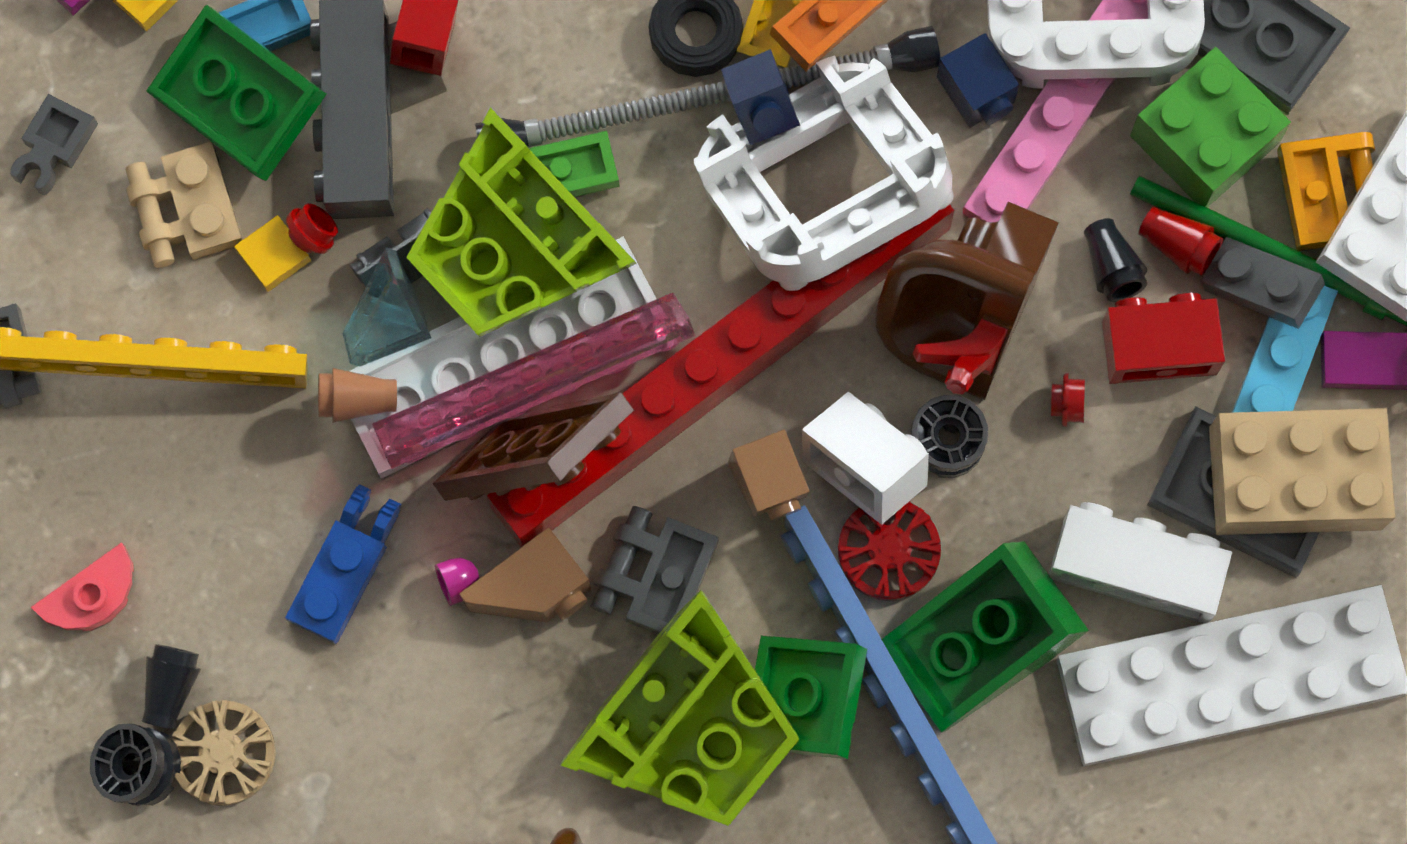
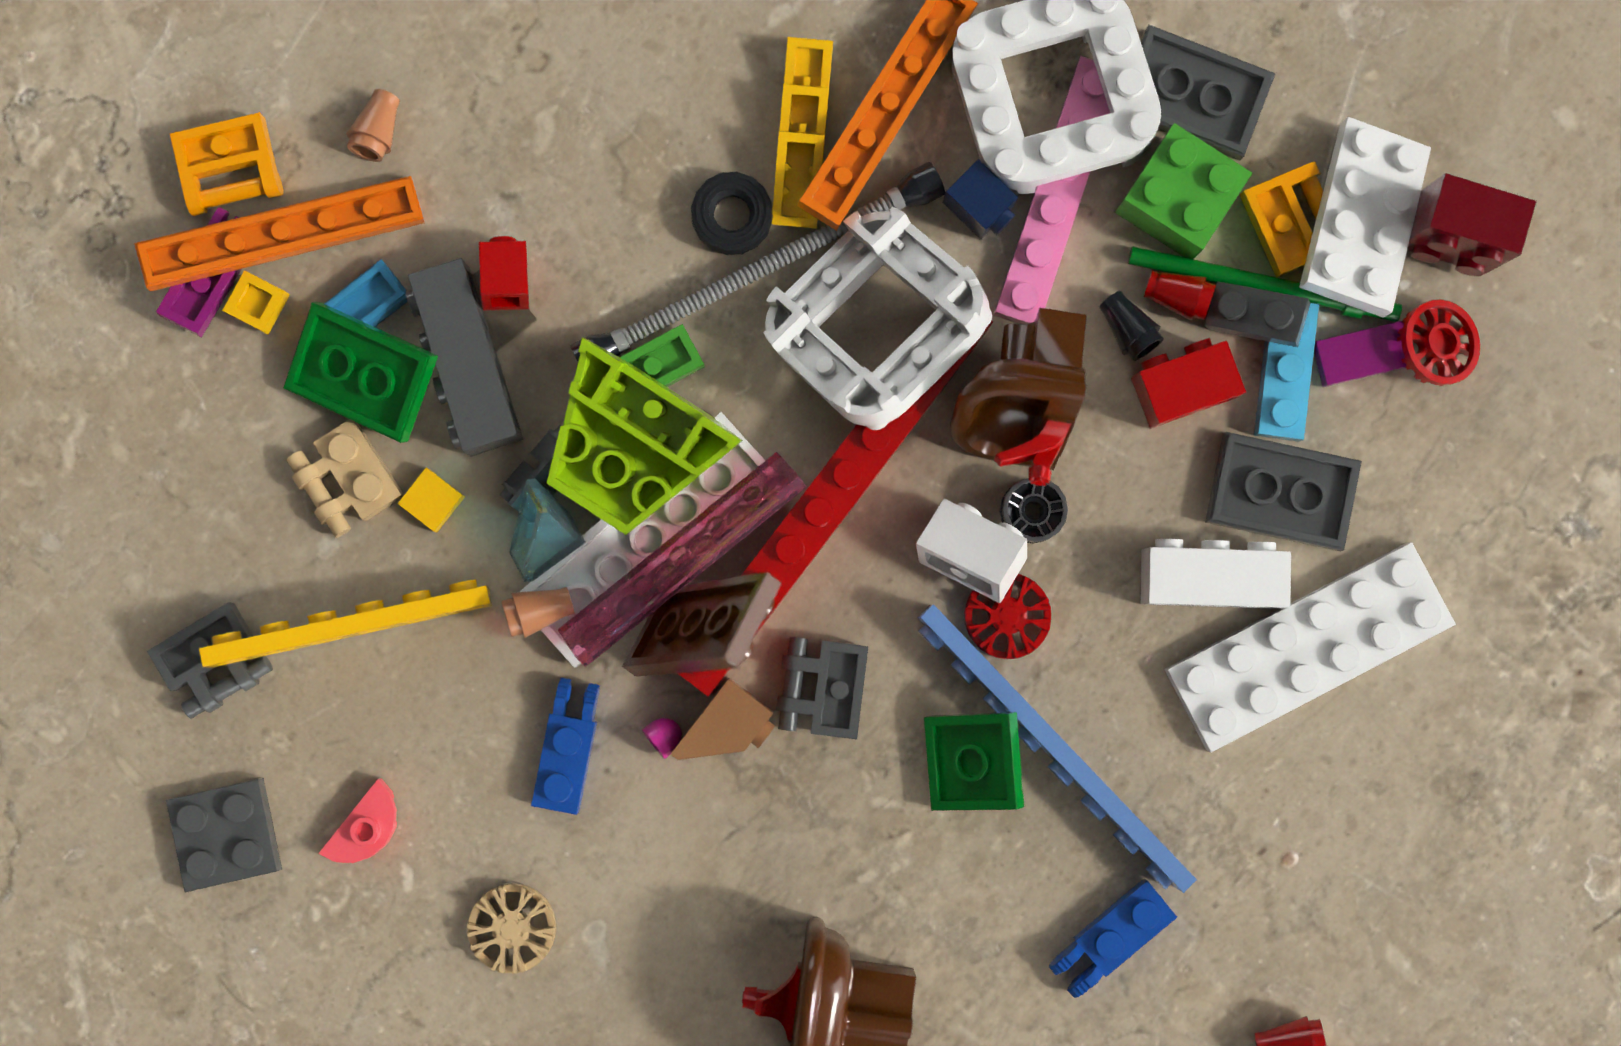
camera: 25 degrees left, 10 degrees up
(55, 136) = (218, 446): dark grey plate -> none
(116, 761) = (428, 957): black wheel -> none
(168, 683) = (451, 885): black cone -> none
(311, 229) = (458, 472): red plate -> none
(688, 721) = (884, 809): lime wedge -> none
(760, 97) = (805, 264): dark blue brick -> none
(769, 476) = (899, 590): medium nougat slope -> none
(983, 634) = (1104, 670): green slope -> none
(1068, 400) = (1123, 454): red plate -> none
(1301, 471) = (1331, 470): tan brick -> none

